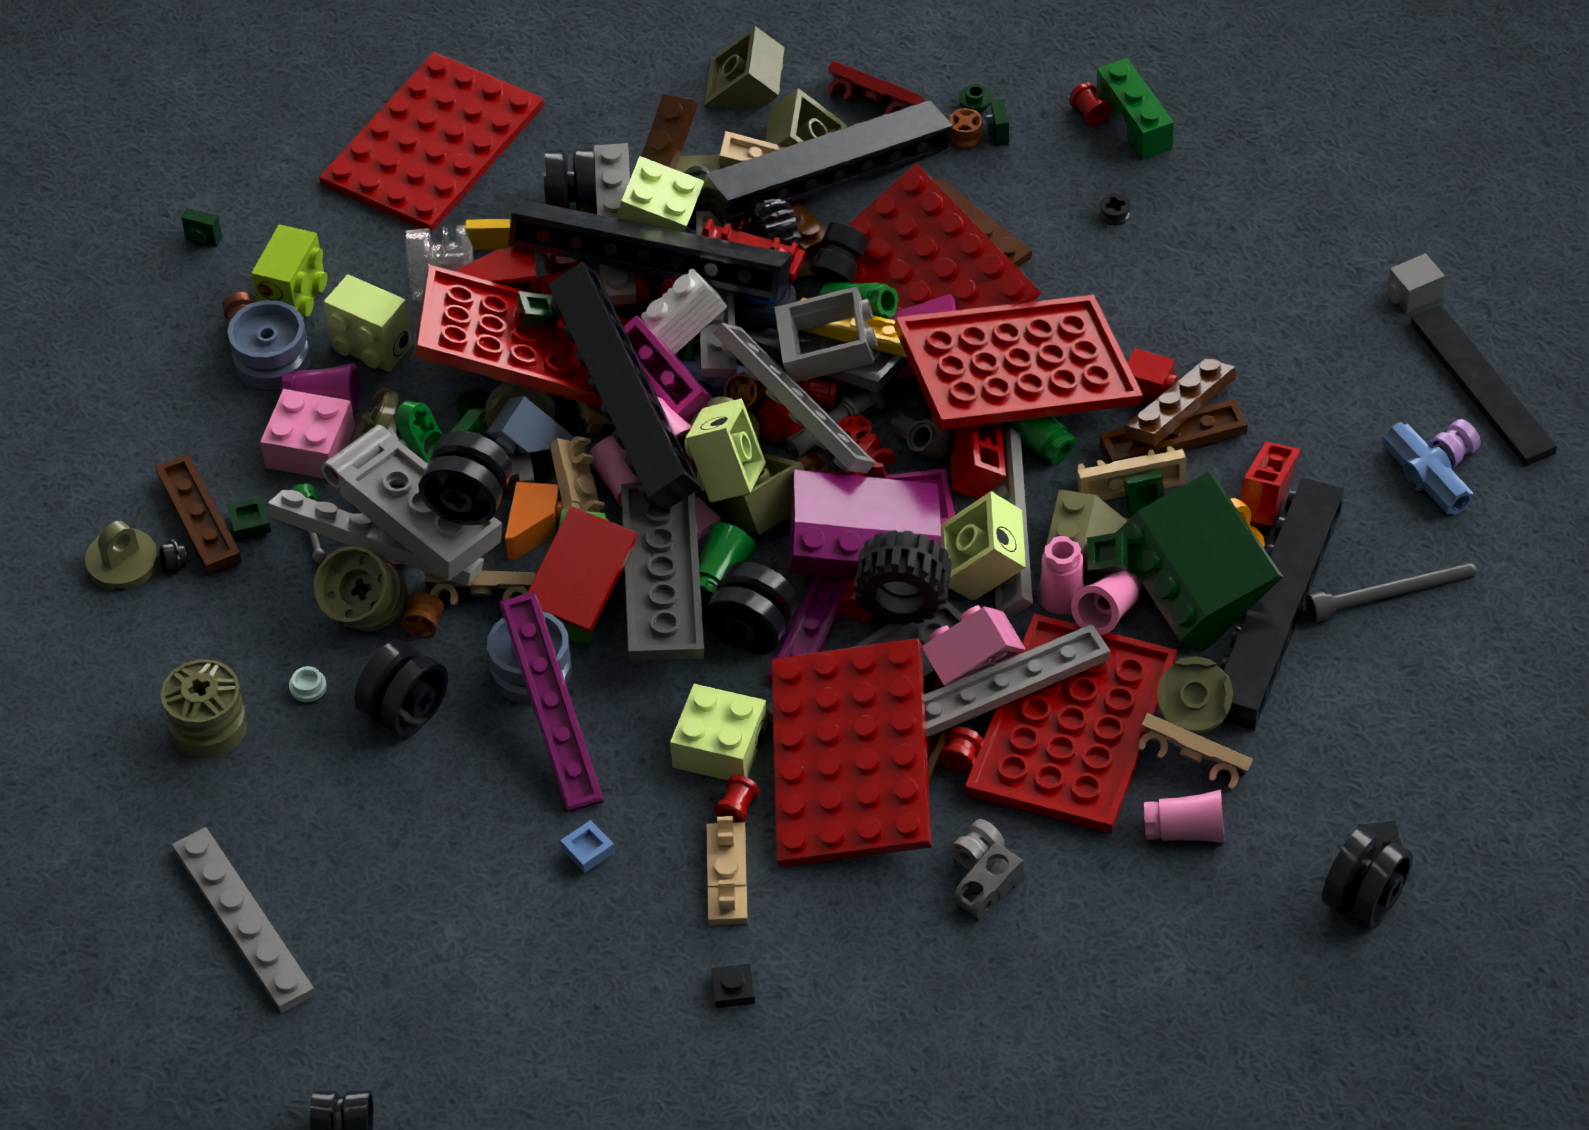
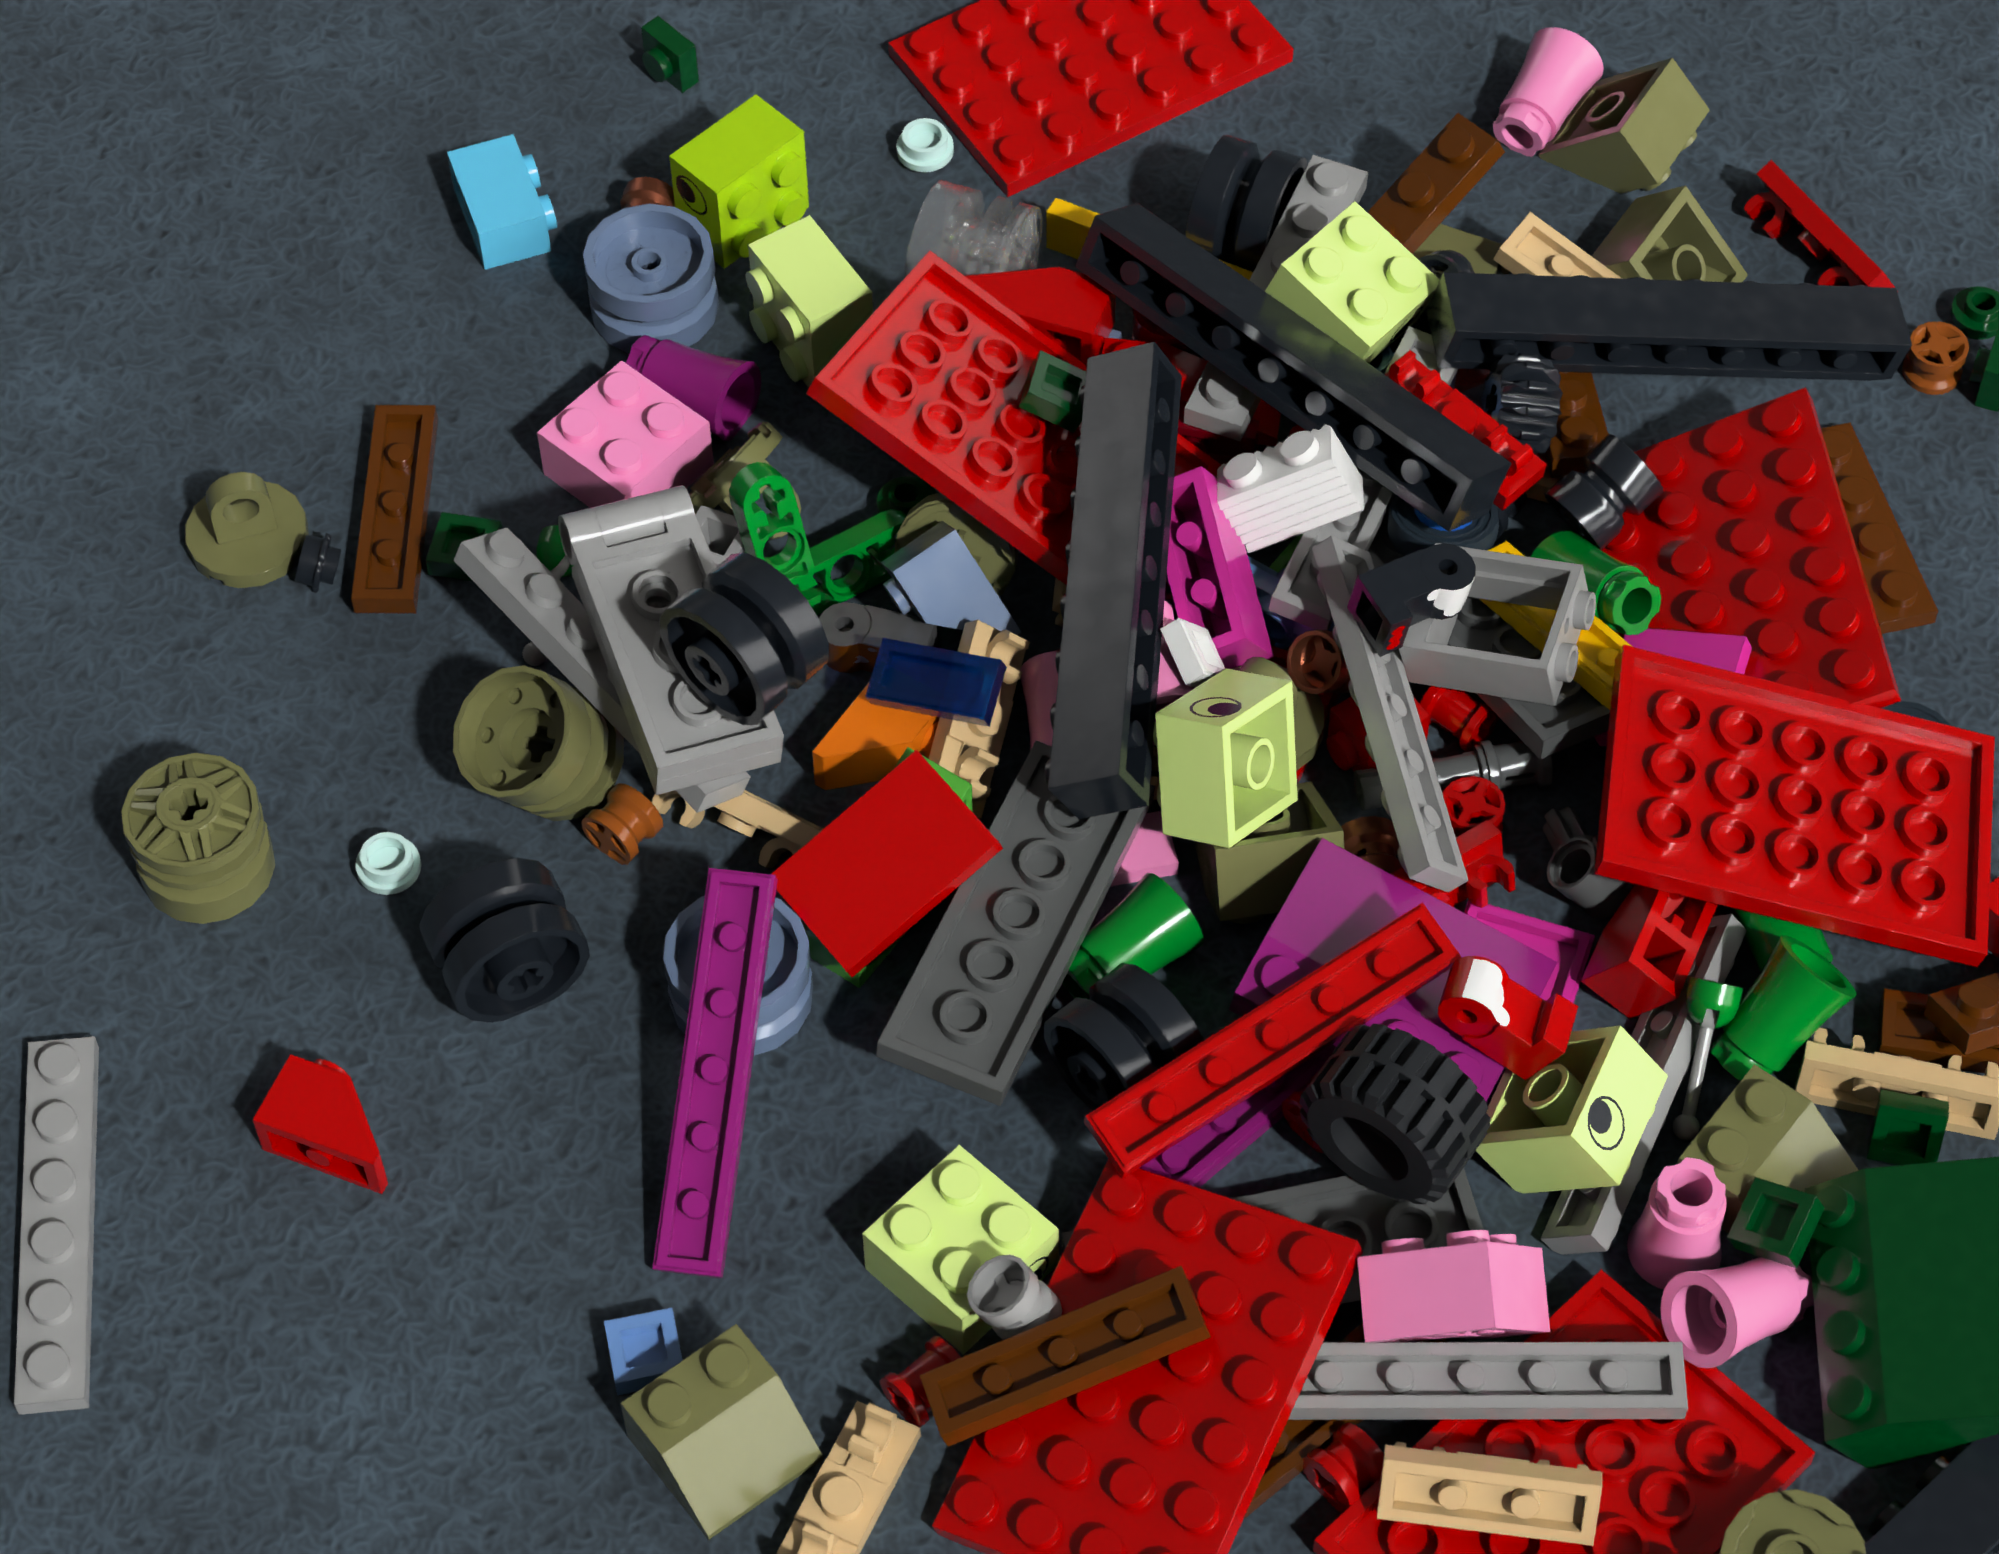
camera: 25 degrees right, 5 degrees up
(155, 338) = (501, 201): none -> medium azure brick
(358, 814) = (320, 1123): none -> red slope
(372, 222) = (925, 145): none -> light aqua plate
(552, 476) = (936, 682): none -> clear blue tile
(648, 863) = (720, 1431): none -> slope
(680, 407) = (1192, 651): none -> white tile
(692, 65) = (1547, 88): none -> bright pink plant
(765, 738) = (1011, 1296): none -> light grey wheel
(777, 332) = (1411, 590): none -> black leg
(804, 750) = (1064, 1356): none -> reddish brown plate
(825, 568) = (1271, 1040): none -> red tile
(932, 512) = (1504, 1016): none -> red leg
(1024, 471) = (1711, 1007): none -> hinge
(1038, 727) = (1489, 1494): none -> tan plate
(1057, 461) = (1781, 1009): none -> green plant

